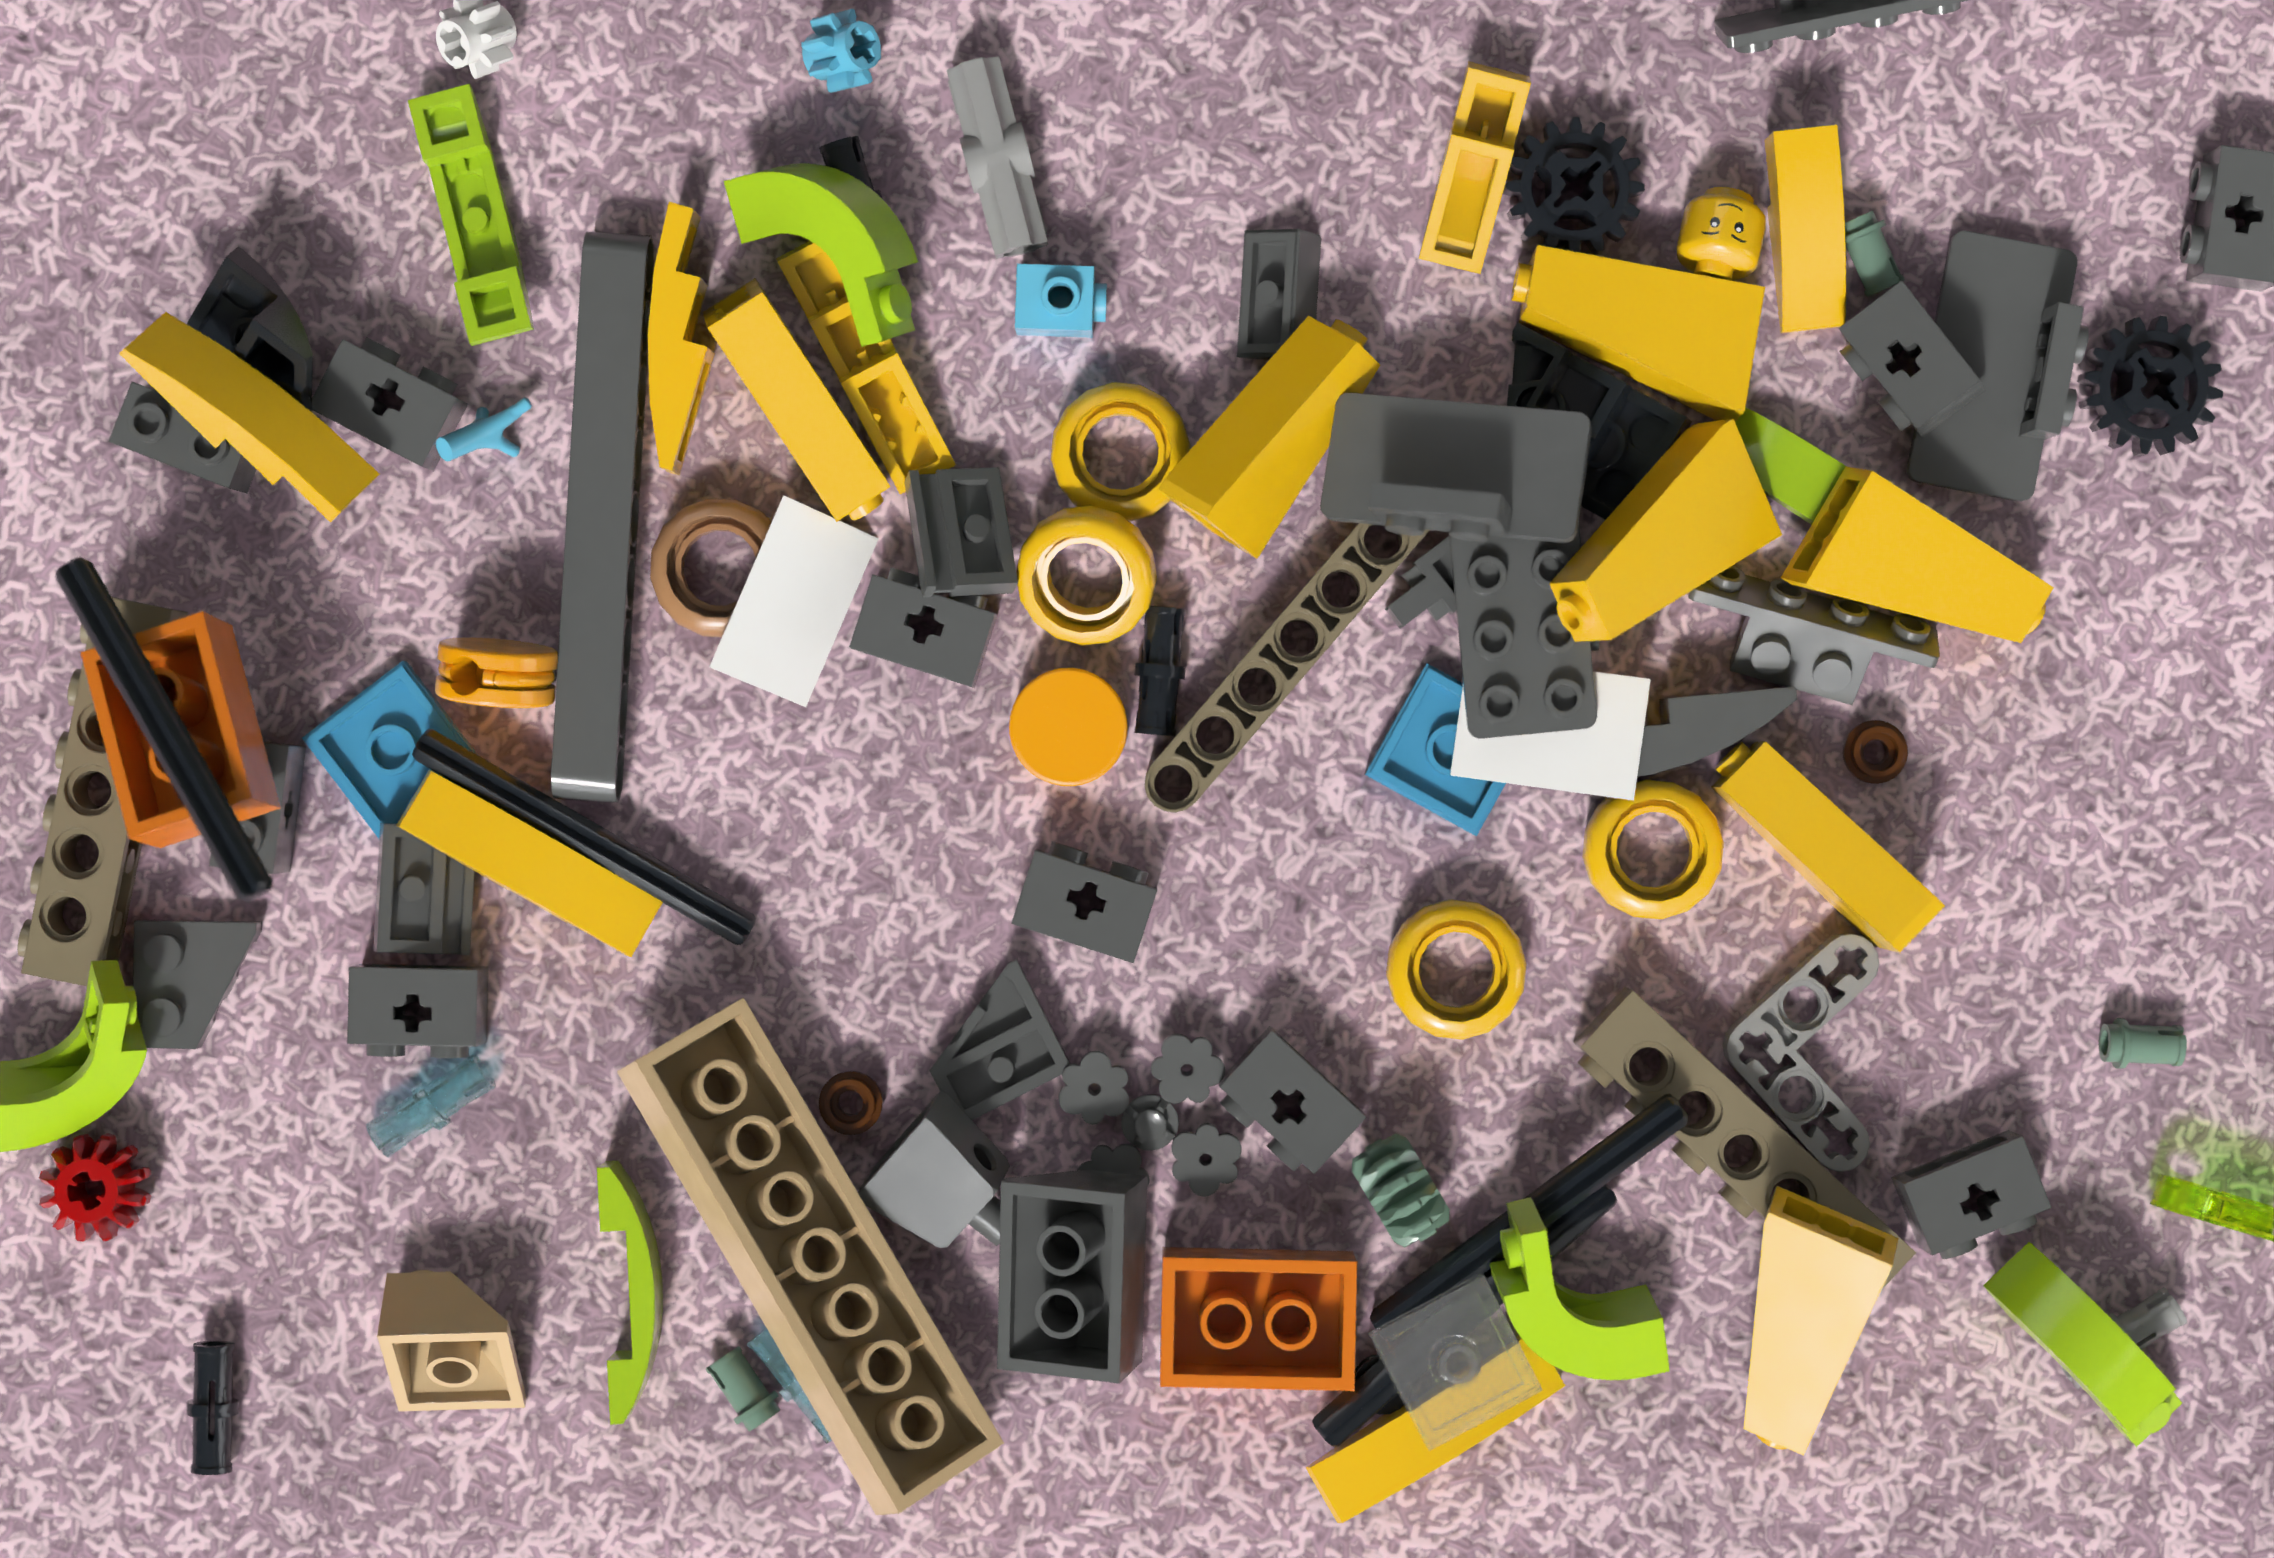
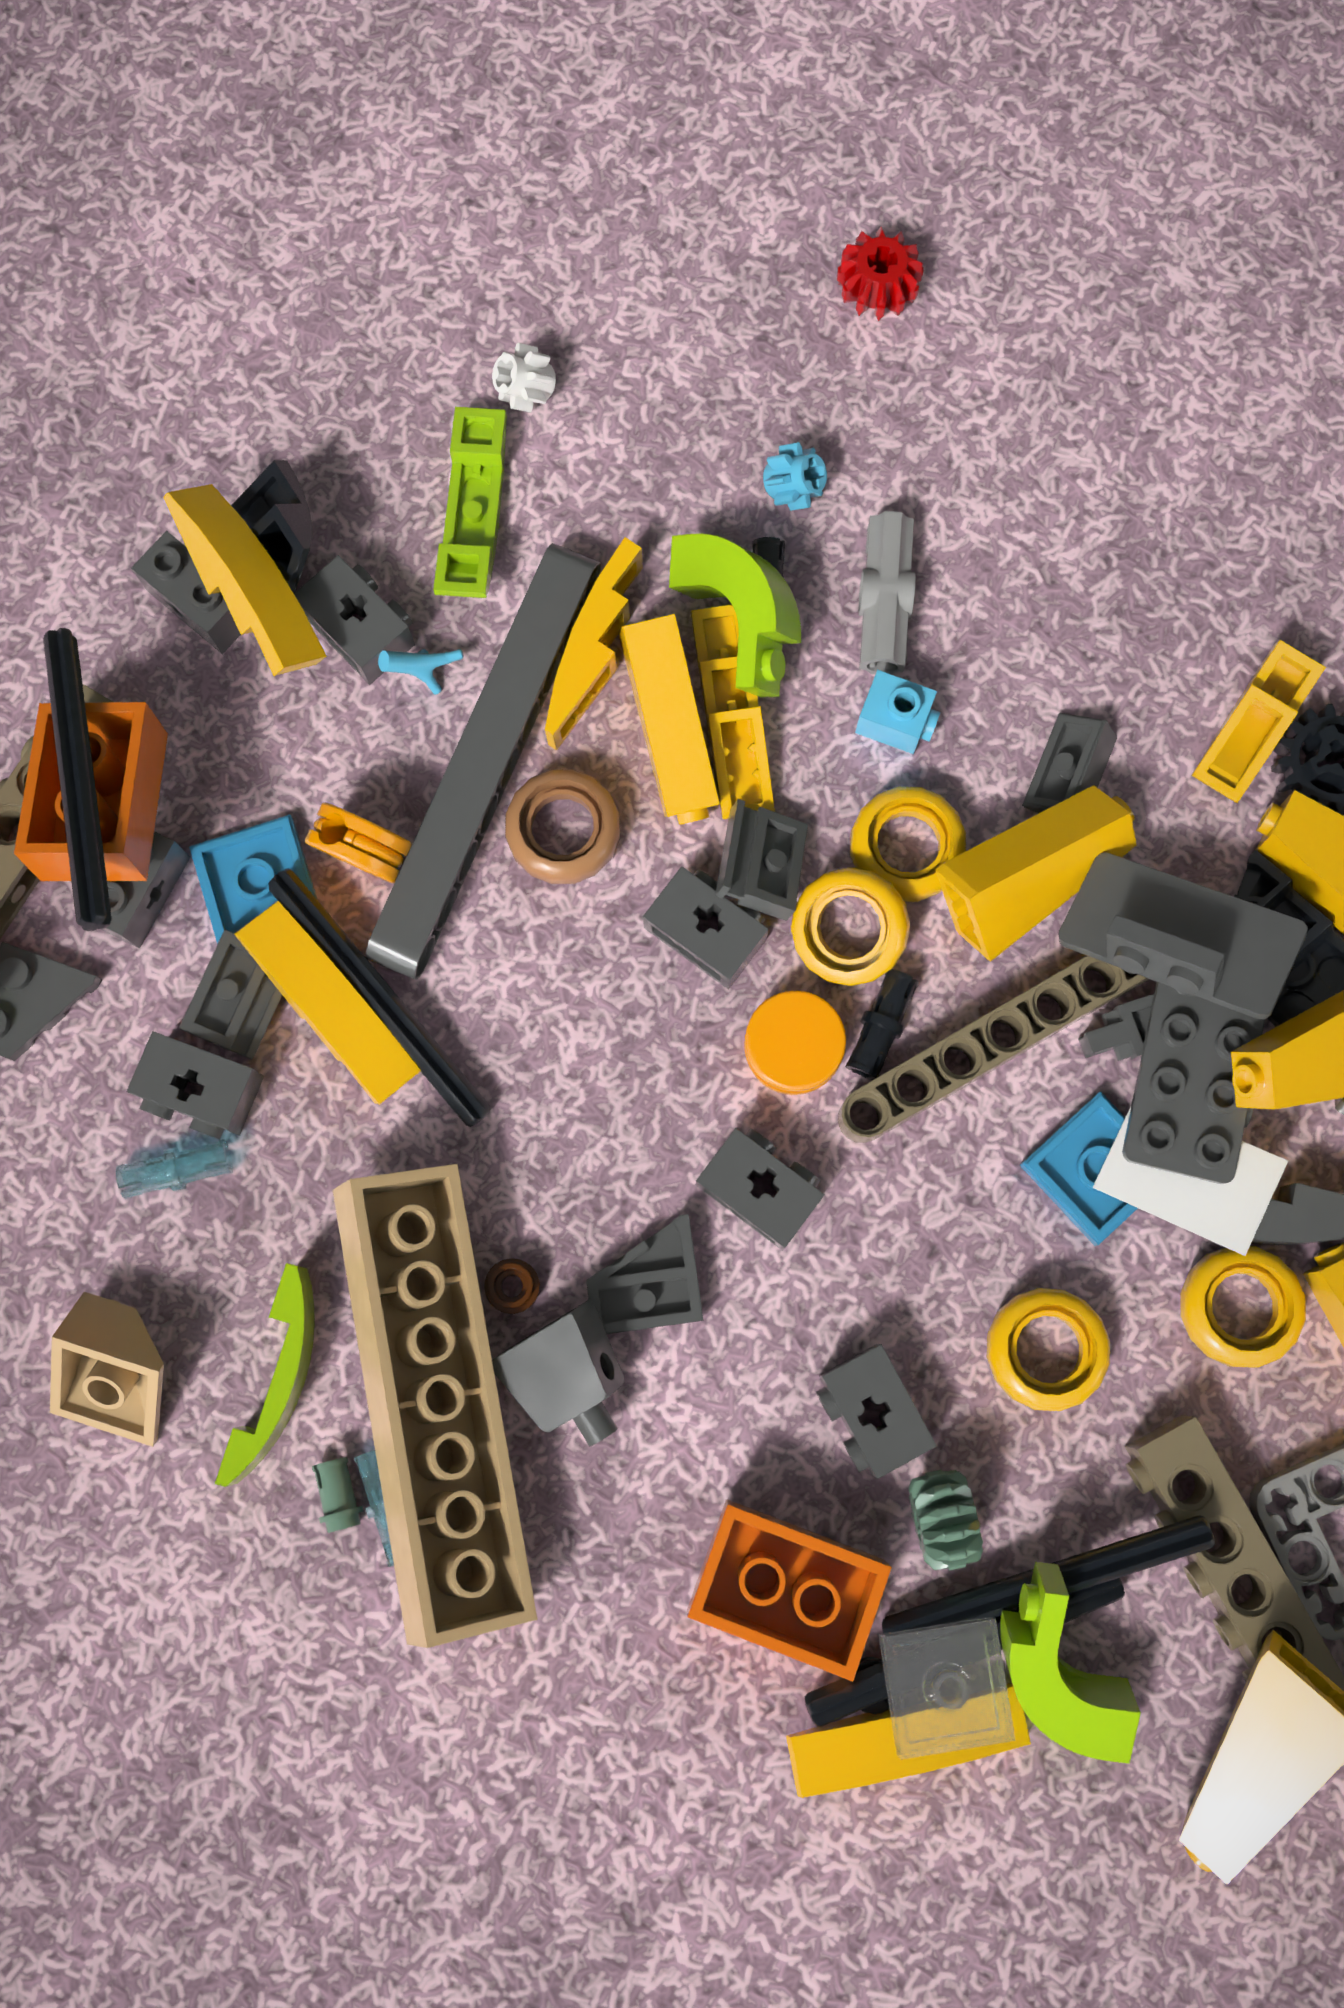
camera: 25 degrees right, 10 degrees down
(794, 601) = (610, 870): white sticker -> none
(1072, 1274) = (644, 1494): dark grey slope -> none
(1151, 1120) = (751, 1389): dark grey plant -> none

